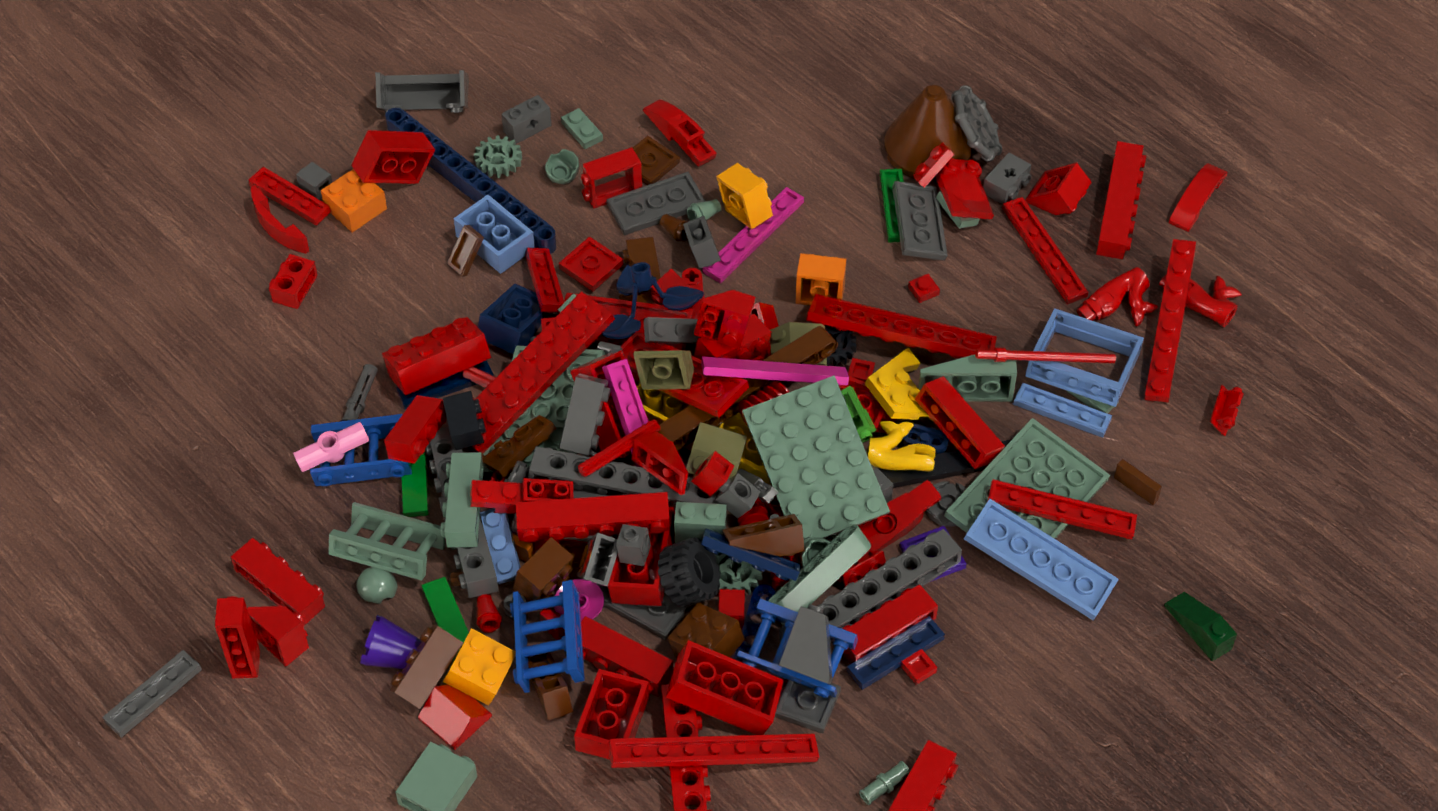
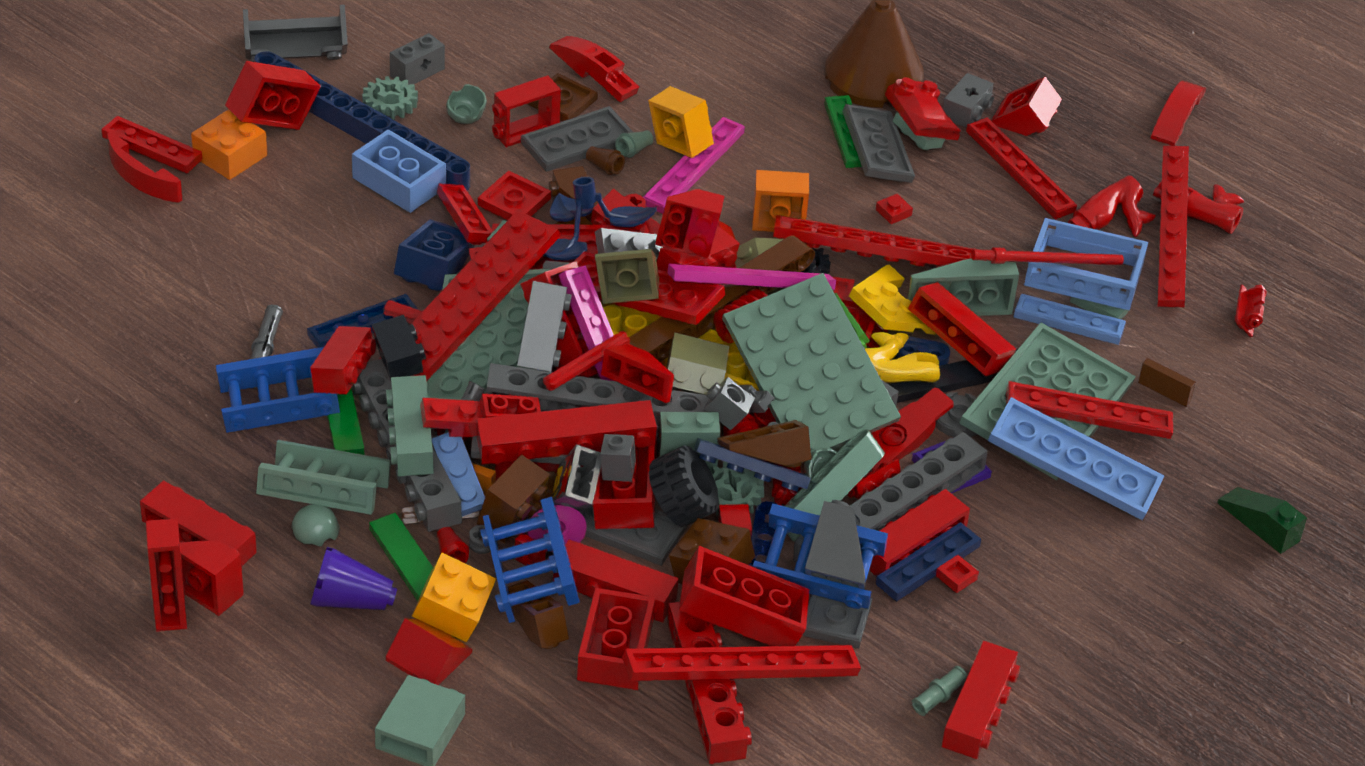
camera: 10 degrees left, 10 degrees down
(152, 693) = (62, 649): dark grey plate -> none
(293, 281) = (169, 227): red brick -> none
(313, 179) = (179, 125): dark grey brick -> none
(331, 447) = (244, 383): bright pink piece -> none
(425, 665) = (391, 597): reddish brown brick -> none
(436, 355) = (351, 290): red brick -> none
(465, 250) = (368, 187): reddish brown tile -> none
(523, 443) = (470, 367): reddish brown wing -> none
(582, 128) = (480, 69): sand green plate -> none
(701, 242) = (639, 169): dark grey brick -> none
(712, 473) = (699, 379): red brick -> none
(928, 170) = (884, 88): red plate -> none
(976, 123) = (927, 43): dark grey plate -> none
(1120, 200) = (1096, 111): red brick -> none

